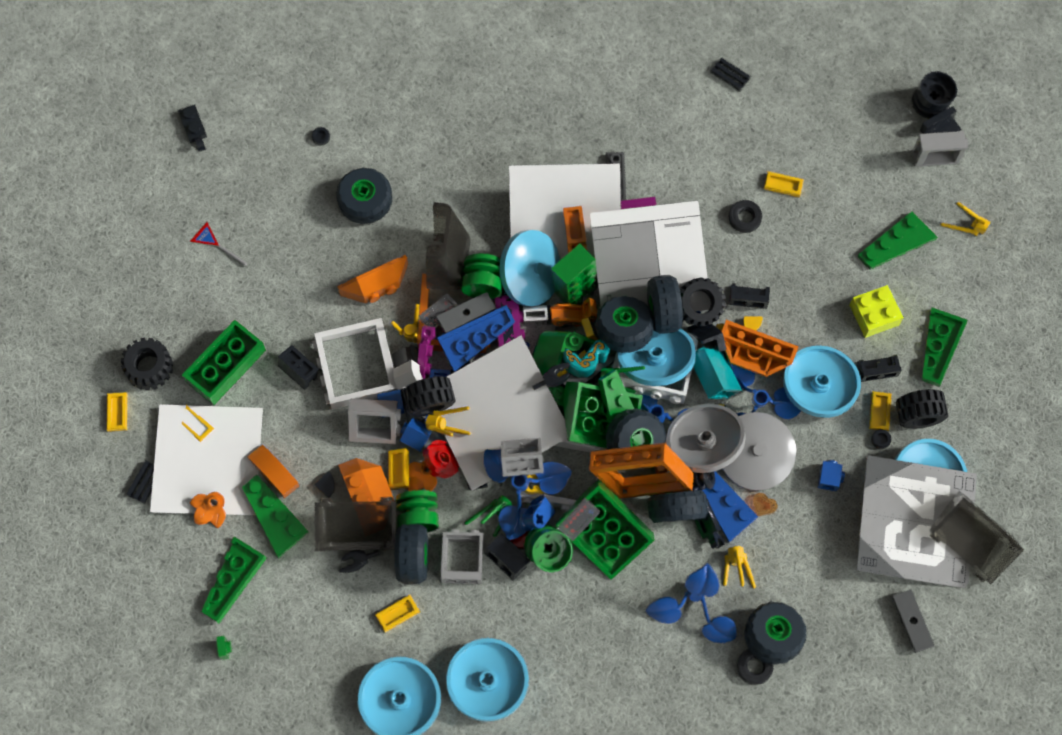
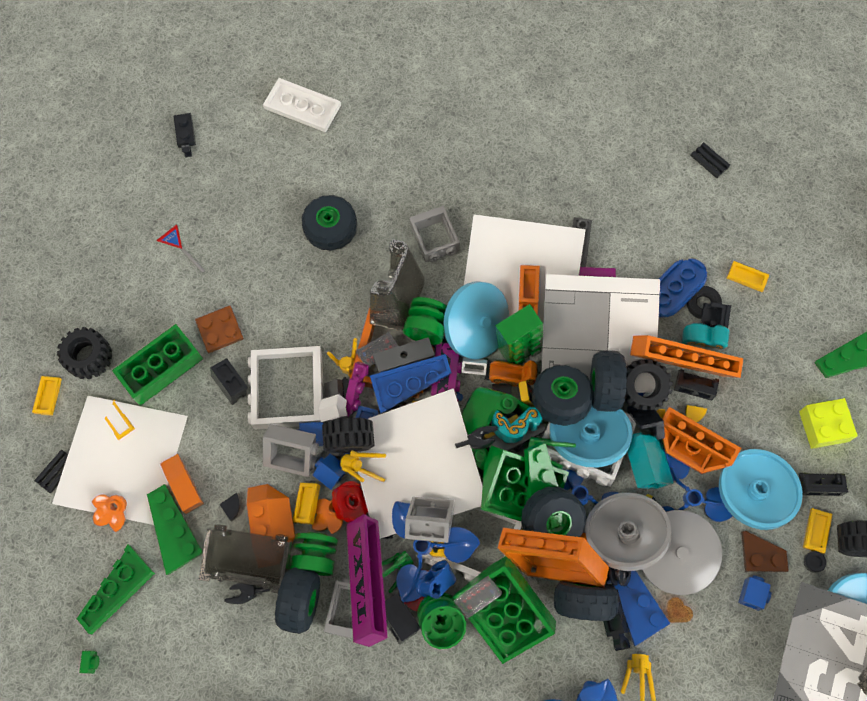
camera: 15 degrees right, 0 degrees up
(275, 319) = (219, 329): none -> dark orange plate
(309, 79) = (302, 105): none -> white plate
(320, 136) = (301, 160): black tile -> none
(376, 282) = (324, 308): orange wedge -> none
(397, 613) = (273, 658): yellow tile -> none
(464, 175) = (429, 218): none -> light grey window
(472, 524) = (366, 582): none -> magenta brick
(719, 203) = (680, 285): none -> blue tile
(734, 269) = (686, 356): none -> orange brick
(749, 247) = (706, 336): none -> teal animal
(757, 234) = (715, 314): none -> black hinge
(833, 441) = (762, 555): none -> reddish brown wing

